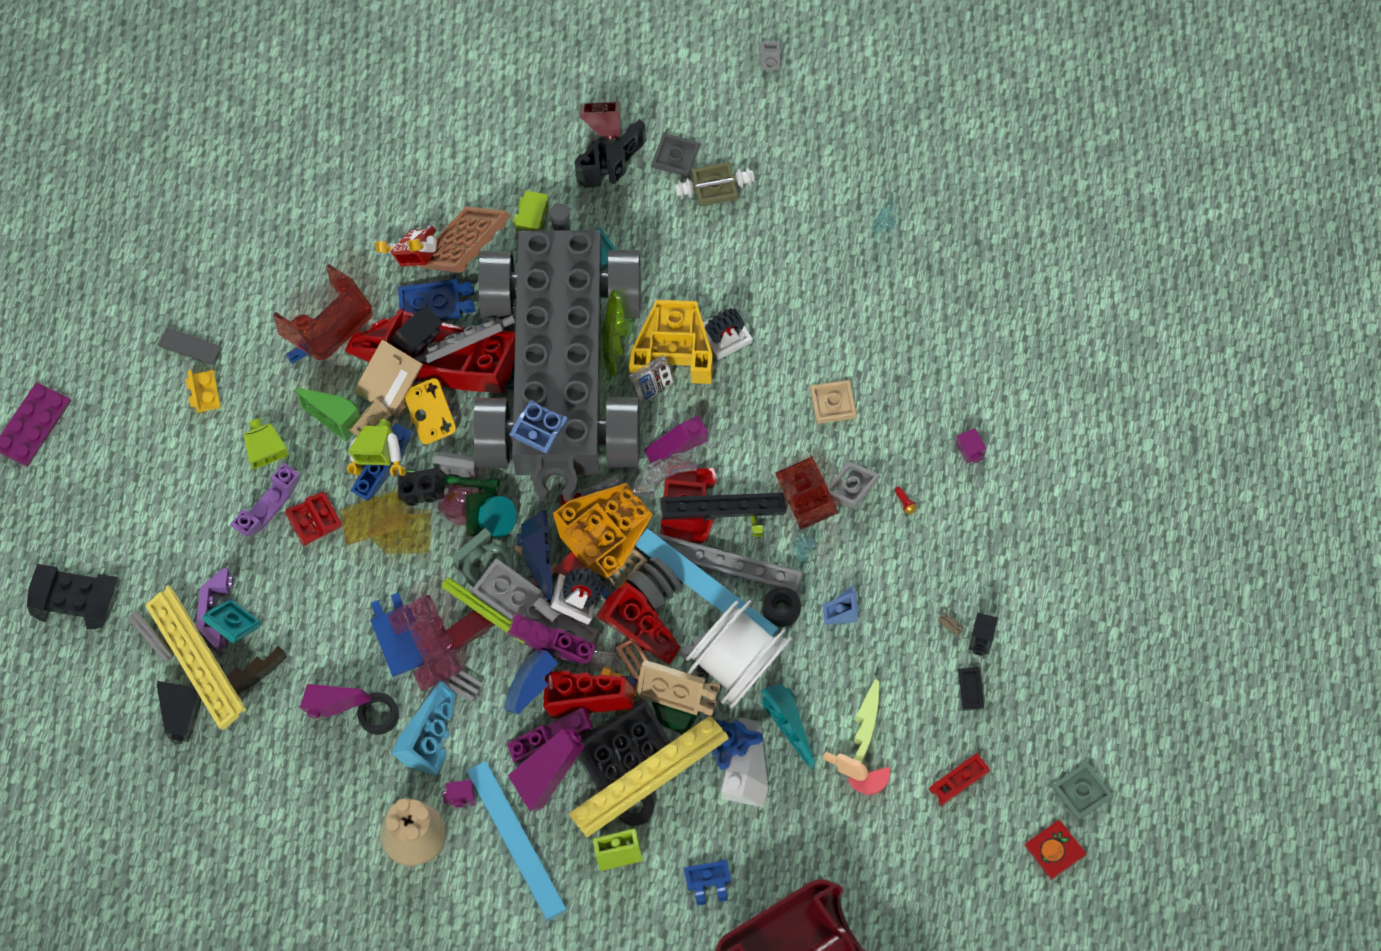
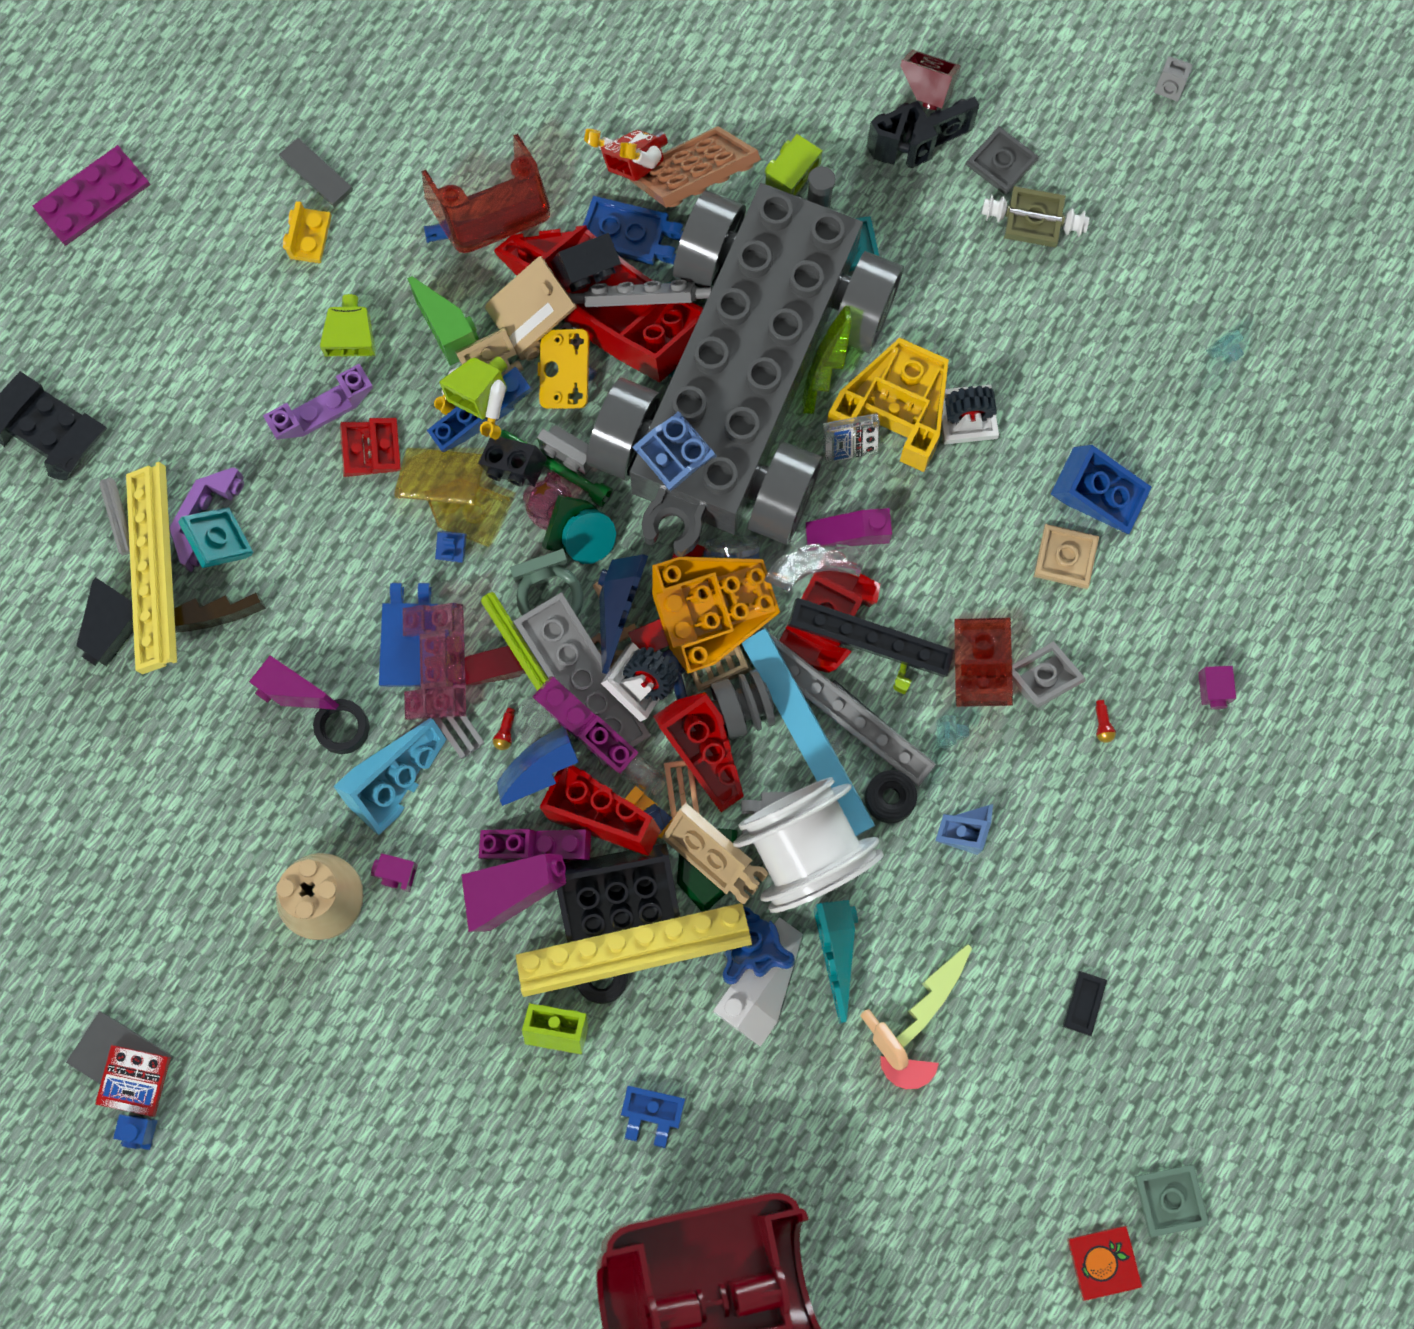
camera: 20 degrees right, 10 degrees up
(401, 562) = (450, 546): none -> blue tile
(495, 676) = (502, 739): none -> red piece
(516, 841) = (439, 960): medium azure tile -> none
(545, 609) = (593, 679): light grey pin -> none
(837, 347) = (1101, 488): none -> blue slope
(950, 624) = (1094, 908): dark tan piece -> none
(960, 779) = (1022, 1118): red plate -> none
(983, 634) = (1130, 943): black brick -> none

